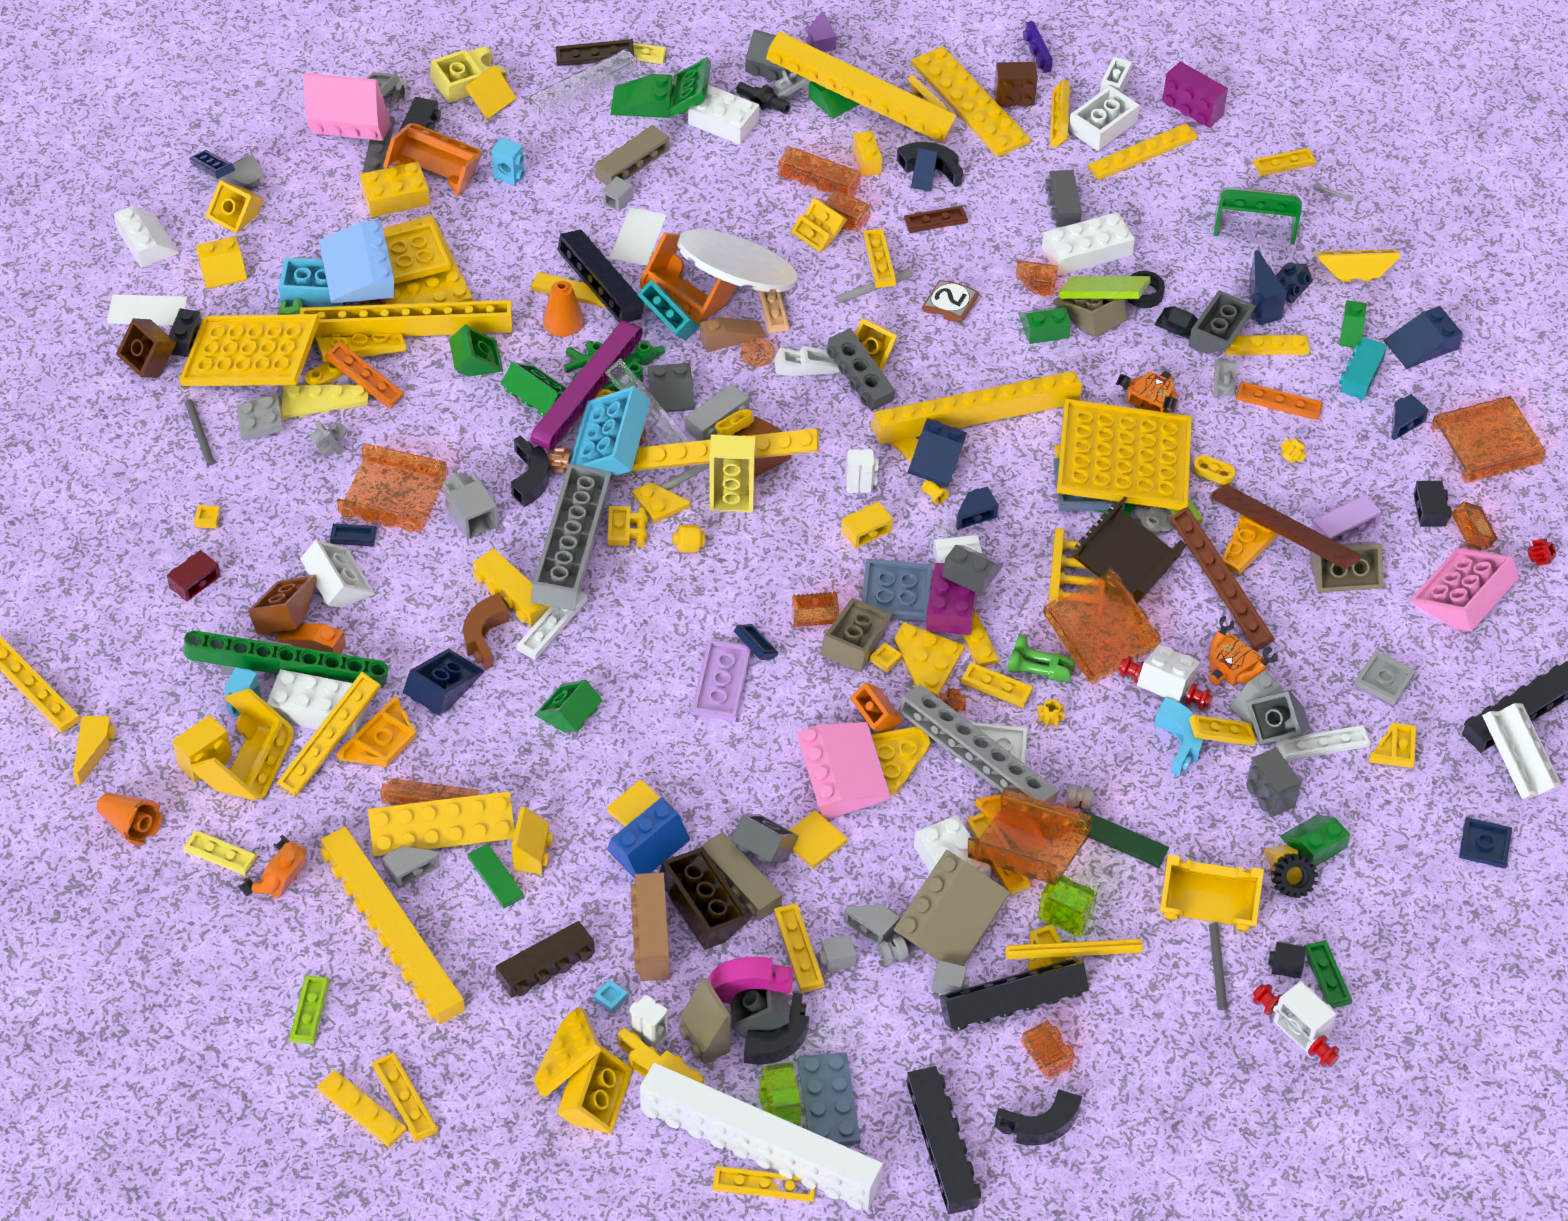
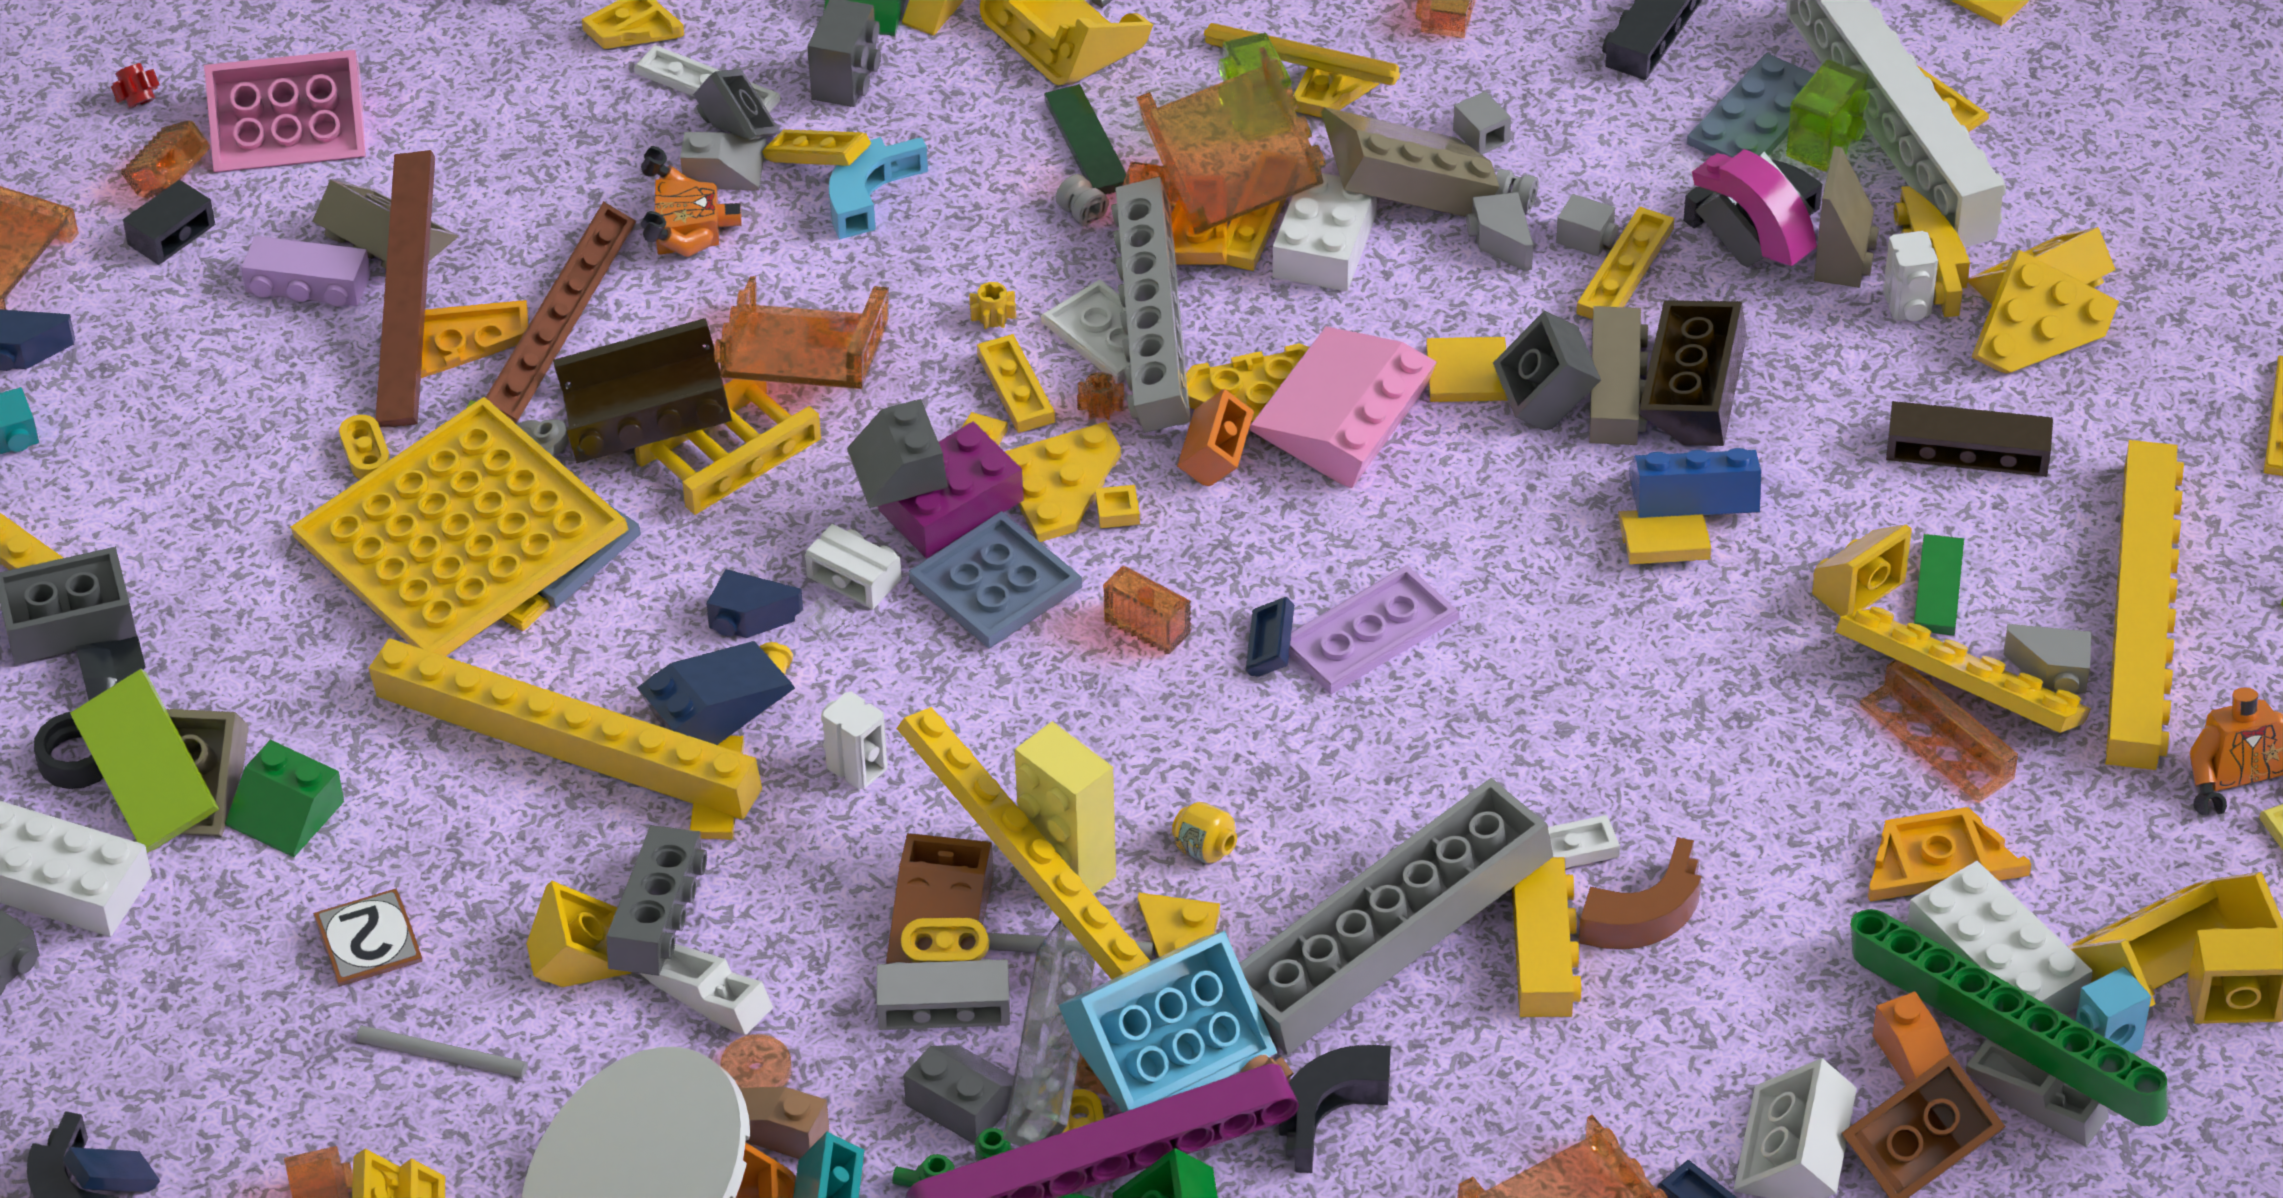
camera: 135 degrees left, 5 degrees down
(328, 734) = (2028, 868): yellow tile -> none
(441, 681) = (1776, 869): dark blue slope -> none
(470, 504) = (1485, 1094): light grey piece -> none
(570, 706) = (1629, 720): green slope -> none
(610, 996) = (1921, 356): medium azure plate -> none
(619, 526) = (1279, 915): yellow plate -> none
(650, 927) = (1801, 370): medium nougat brick -> none
(855, 634) = (1135, 533): dark tan slope -> none
(867, 524) = (926, 680): yellow brick -> none
(879, 258) = (383, 1073): yellow plate -> none
(935, 219) = (198, 1097): copper tile -> none
(1014, 993) = (1428, 58): black brick -> none
(1037, 277) = (195, 869): clear orange slope -> none
(1057, 665) = (921, 352): bright green piece -> none
(1150, 391) = (294, 585): orange torso -> none
(1168, 676) = (799, 243): white brick -> none
(1224, 377) = (179, 530): light grey hips -> none
(1279, 400) = (138, 481): orange tile -> none
(1293, 450) = (232, 392): yellow gear -> none
(1384, 678) = (533, 91): light grey plate -> none

